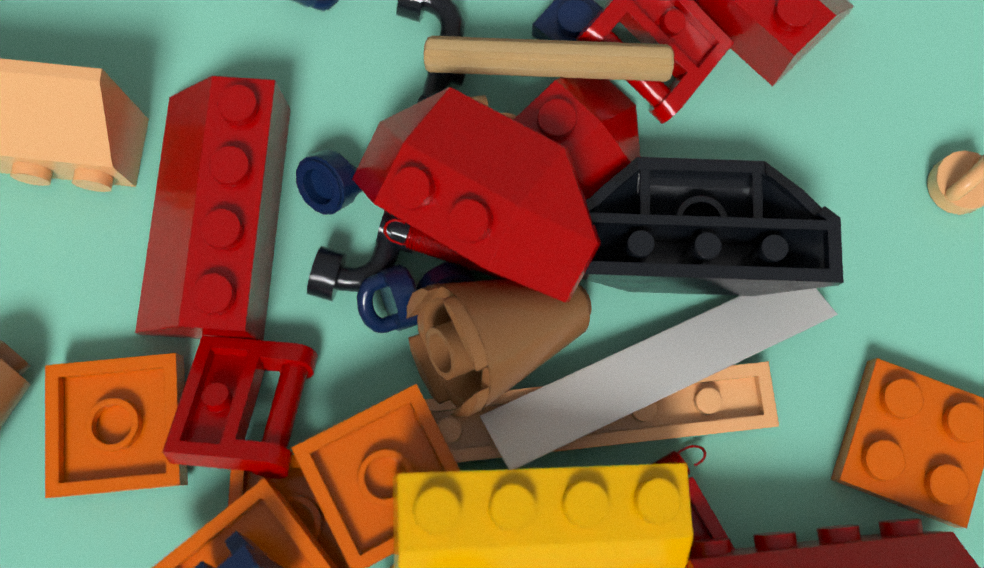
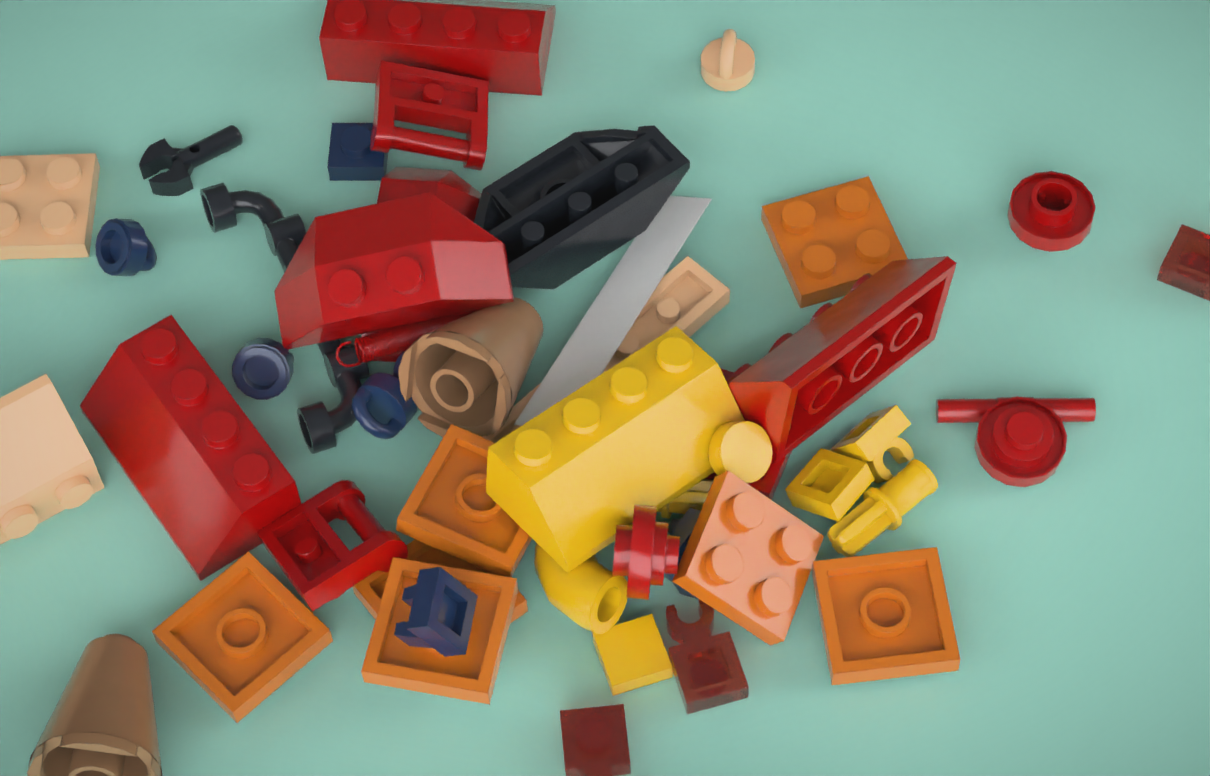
camera: 35 degrees left, 20 degrees down
(549, 58) = (362, 171): tan axle -> none

